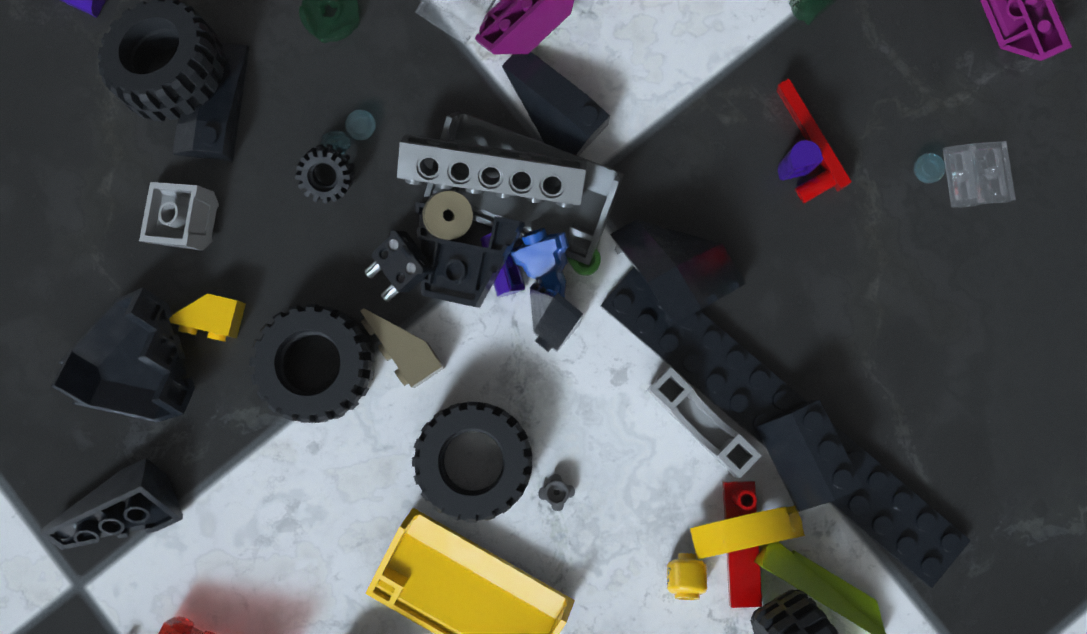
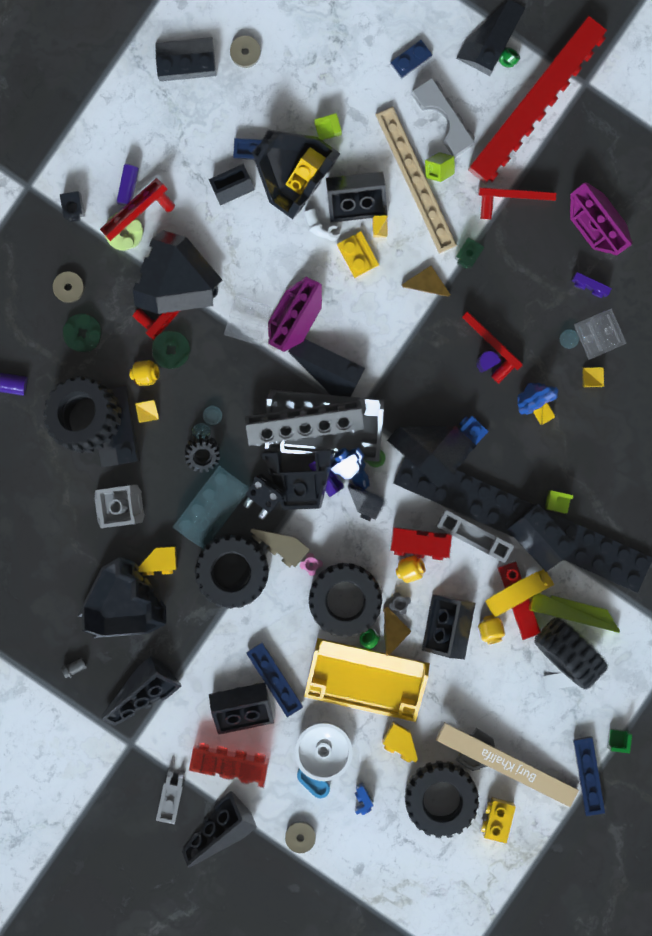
camera: 20 degrees left, 5 degrees up
(21, 442) = (73, 668): none -> dark grey pin
(260, 582) = (241, 708): none -> black slope
(265, 89) = (147, 411): none -> yellow slope
(279, 32) = (144, 373): none -> yellow head
(313, 258) = (211, 507): none -> clear light blue slope
(327, 553) = (274, 679): none -> dark blue plate
(430, 389) = (311, 559): none -> bright pink plate
(461, 215) = (278, 451): dark tan piece -> none
(493, 534) = (369, 639): none -> green tile
(535, 533) = (394, 631): none -> pearl gold tile
(588, 443) = (410, 569): none -> yellow head
(617, 409) = (421, 543): none -> red wedge
(621, 552) = (448, 627): none -> black slope
(738, 24) = (427, 282): none -> pearl gold tile
(746, 258) = (472, 429): none -> blue bracket
(846, 407) = (558, 501): none -> lime panel
(859, 235) = (535, 397): none -> blue rock
(861, 265) = (544, 414): none -> yellow slope
(951, 236) = (593, 377): none -> yellow slope
(989, 99) = (598, 289): none -> dark purple plate

